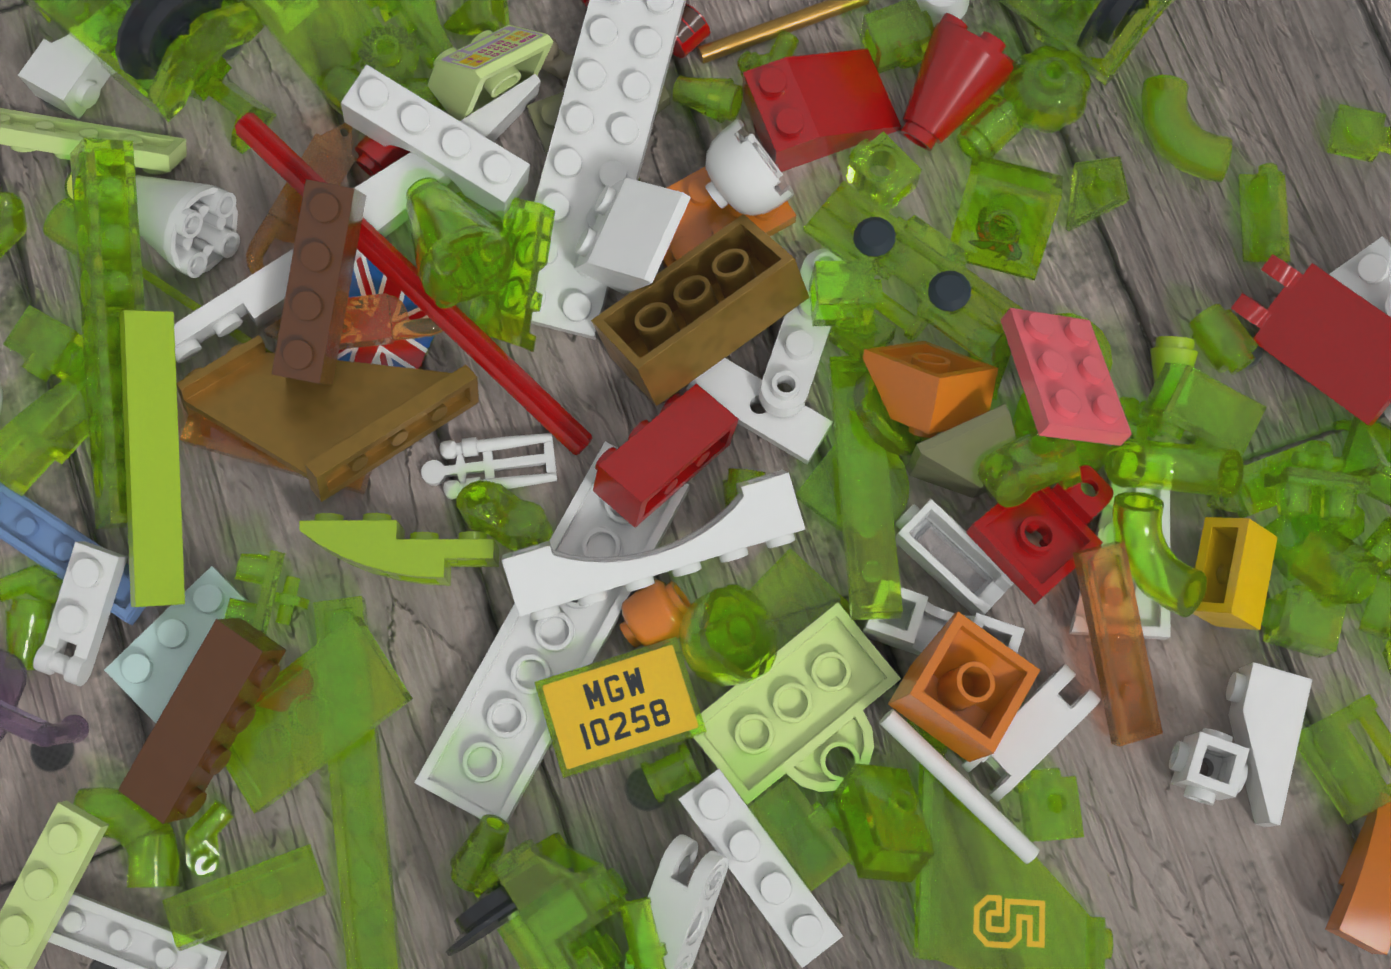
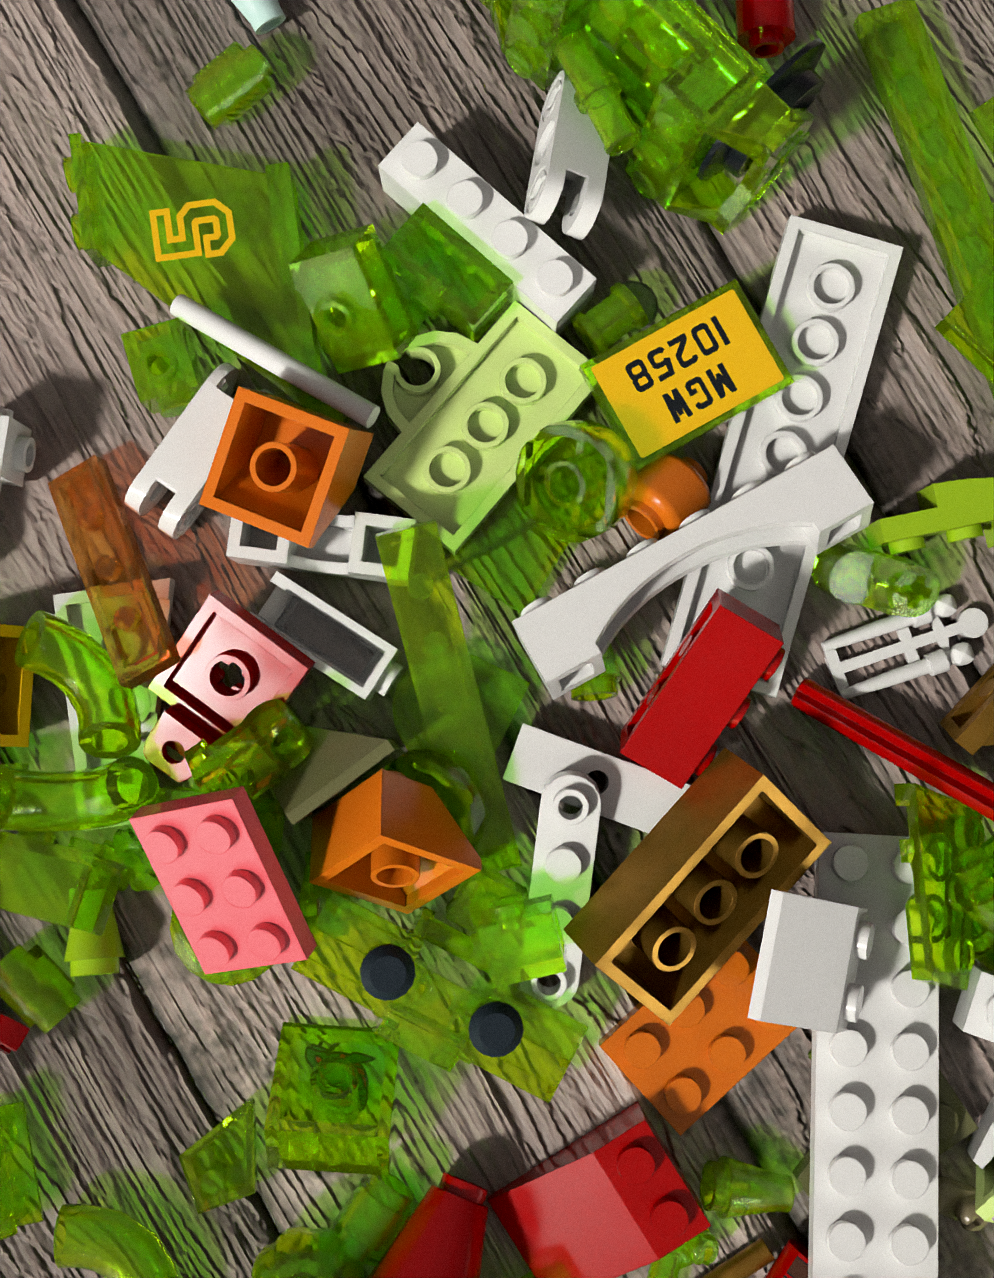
camera: 165 degrees right, 10 degrees up
(479, 851) = (808, 181): clear neon green cone -> none
(743, 173) = (680, 1081): white cylinder -> none
(883, 190) = (496, 1100): clear neon green brick -> none

